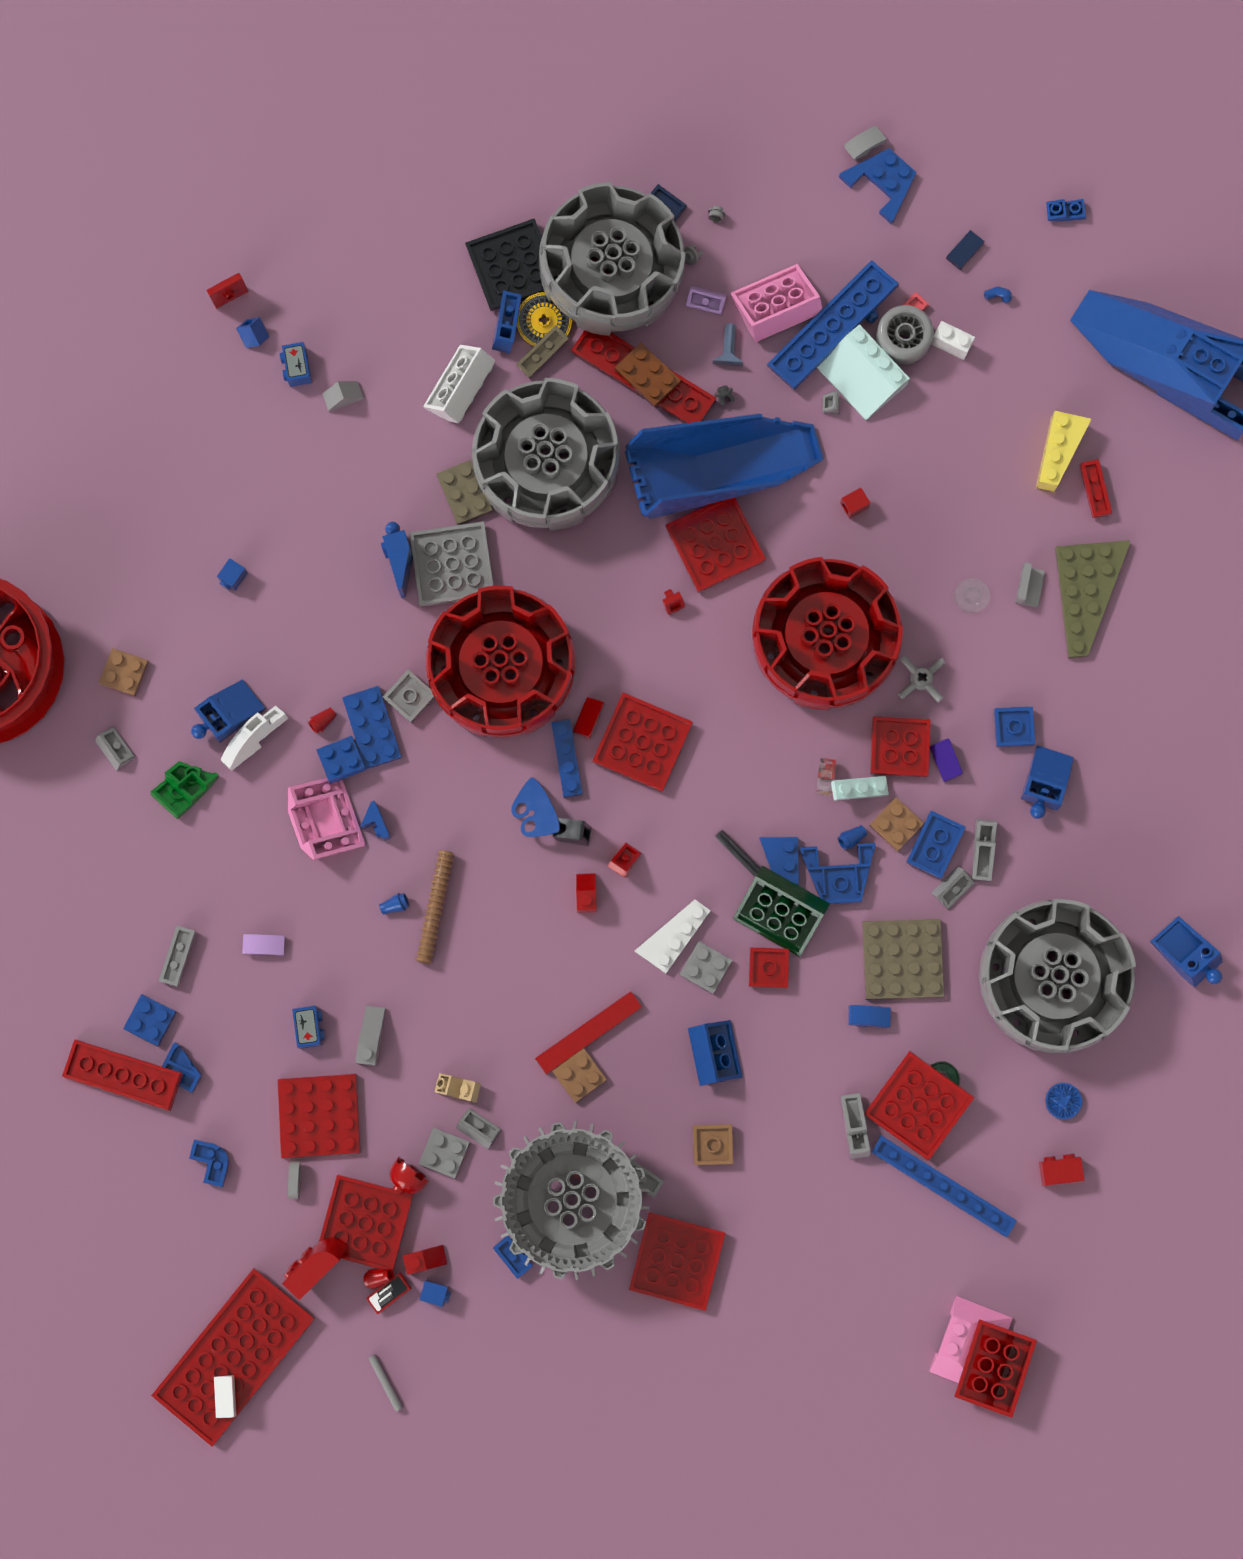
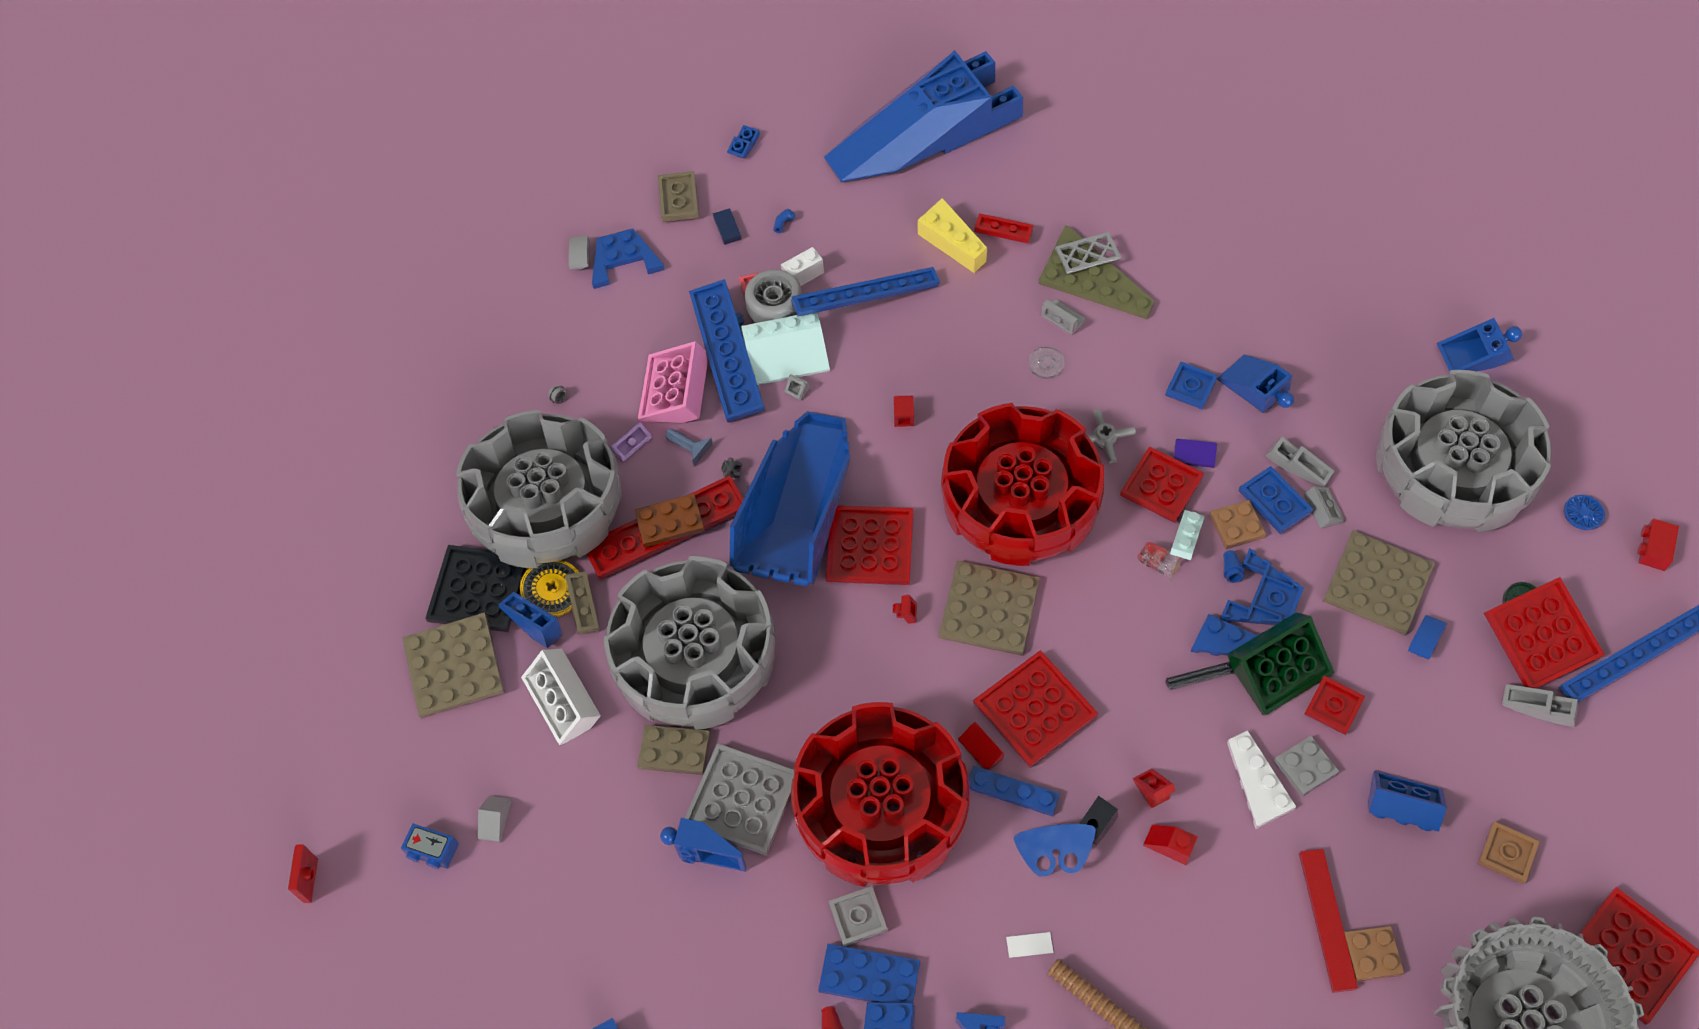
camera: 60 degrees left, 20 degrees down
(252, 332) = (364, 874): blue panel -> none
(440, 288) = (453, 665): none -> dark tan plate
(456, 828) = (1029, 944): none -> white sticker
(711, 664) = (989, 608): none -> dark tan plate
(954, 407) = (865, 291): none -> blue plate
(972, 189) = (678, 196): none -> dark tan plate
(1106, 559) = (1065, 259): none -> light grey window

